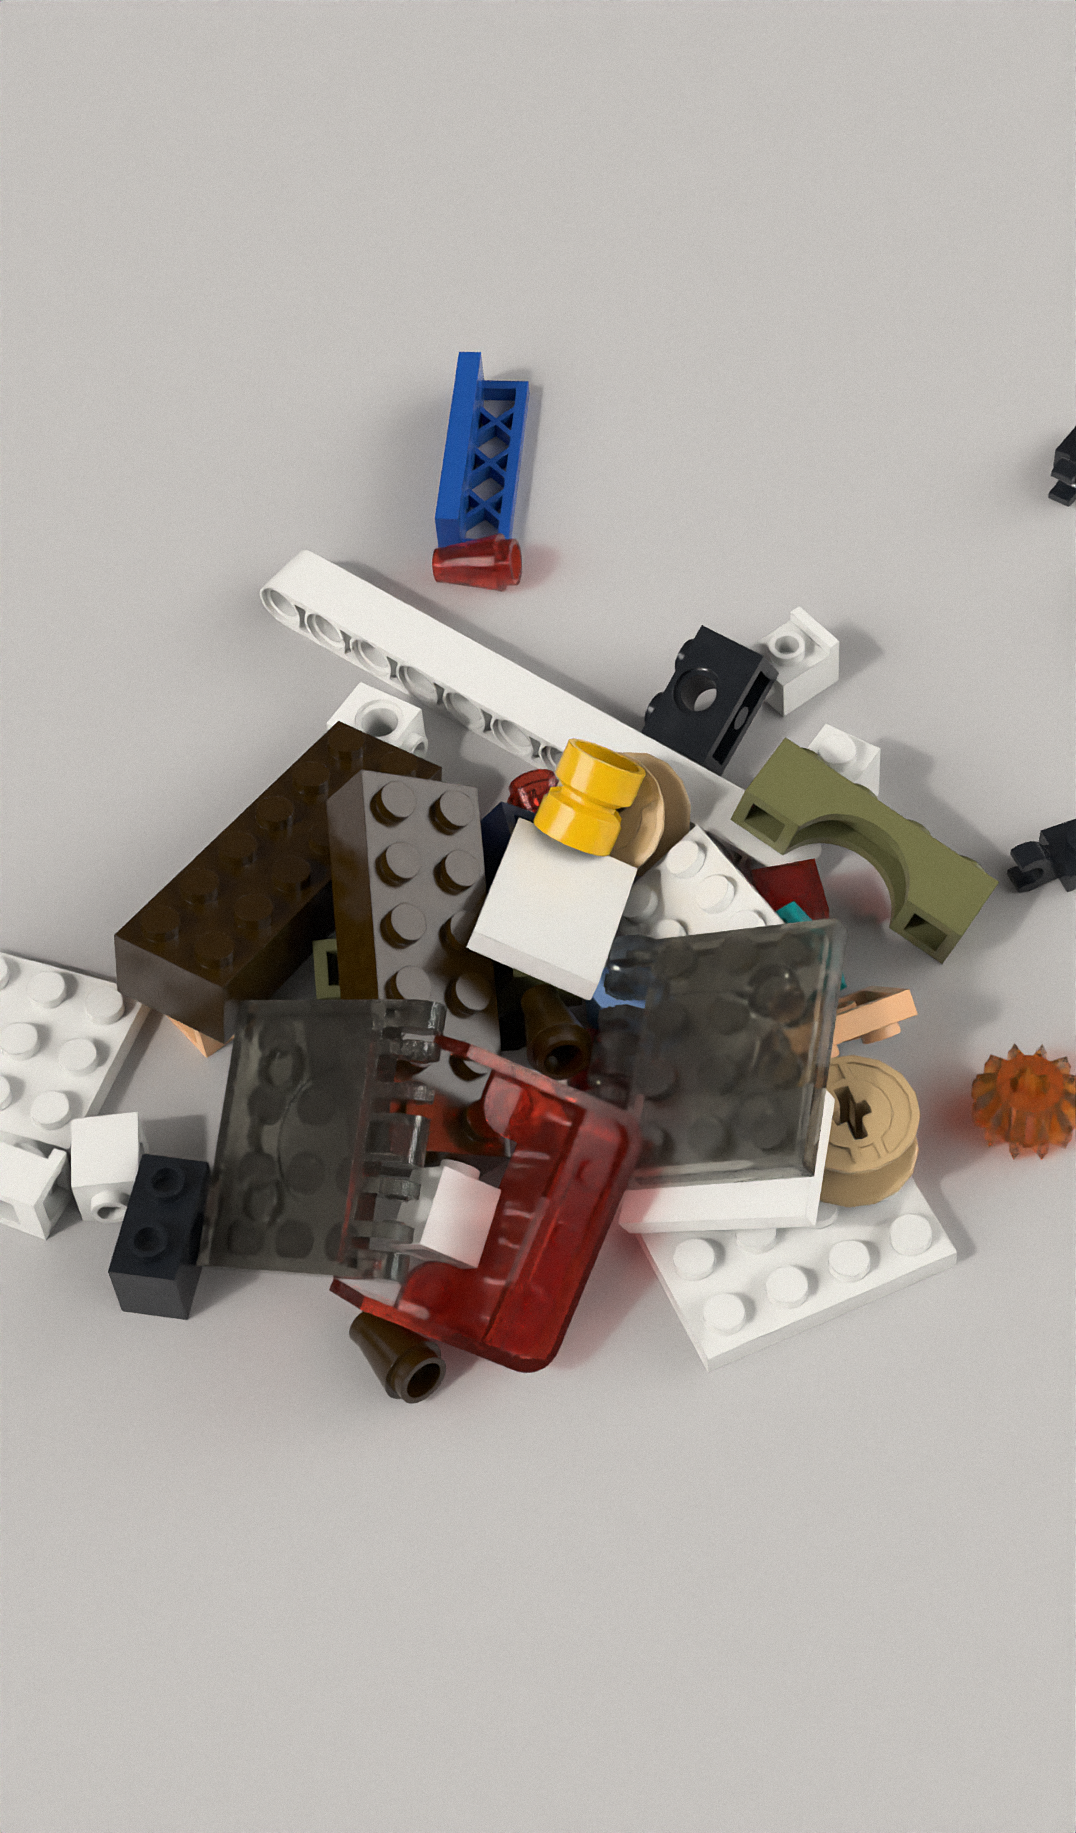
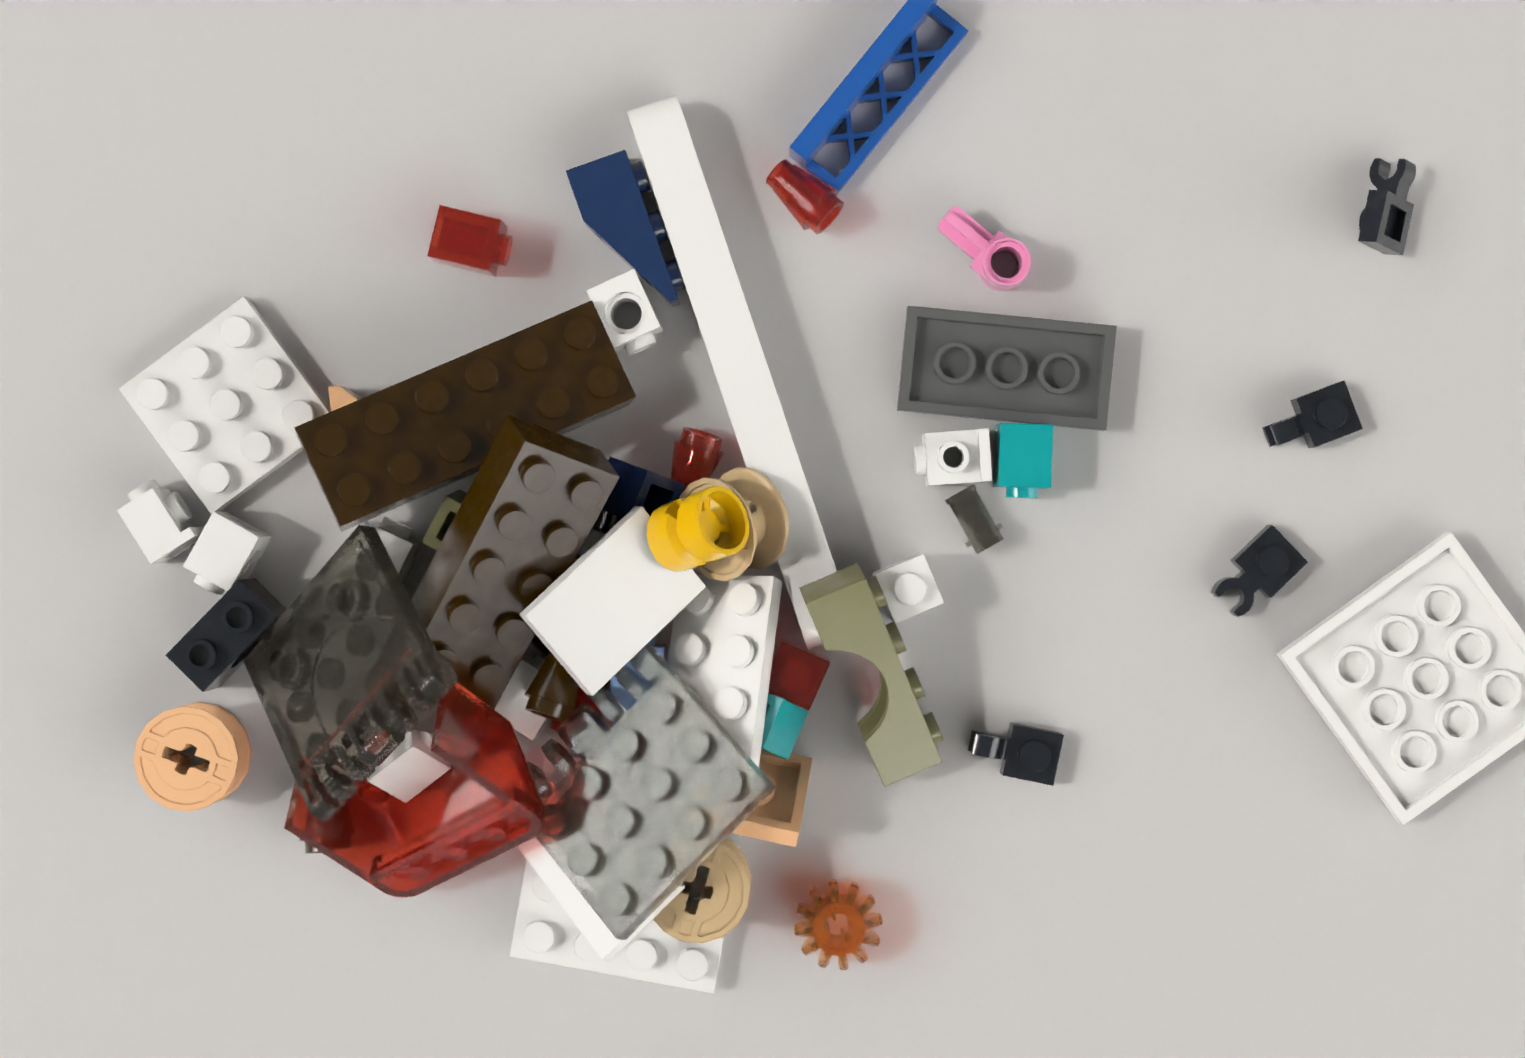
camera: 25 degrees right, 35 degrees up
(180, 769) = (470, 241): none -> clear red brick
(211, 1417) = (167, 773): none -> light nougat piece
(314, 670) = (616, 213): none -> dark blue slope
(698, 505) = (981, 245): none -> bright pink axle
(741, 686) = (893, 457): black brick -> none
(805, 559) = (1006, 368): none -> dark grey plate
(853, 701) = (975, 519): none -> clear smoke pin
(858, 620) = (1023, 458): none -> teal brick
(1005, 295) = (1387, 212): none -> black plate

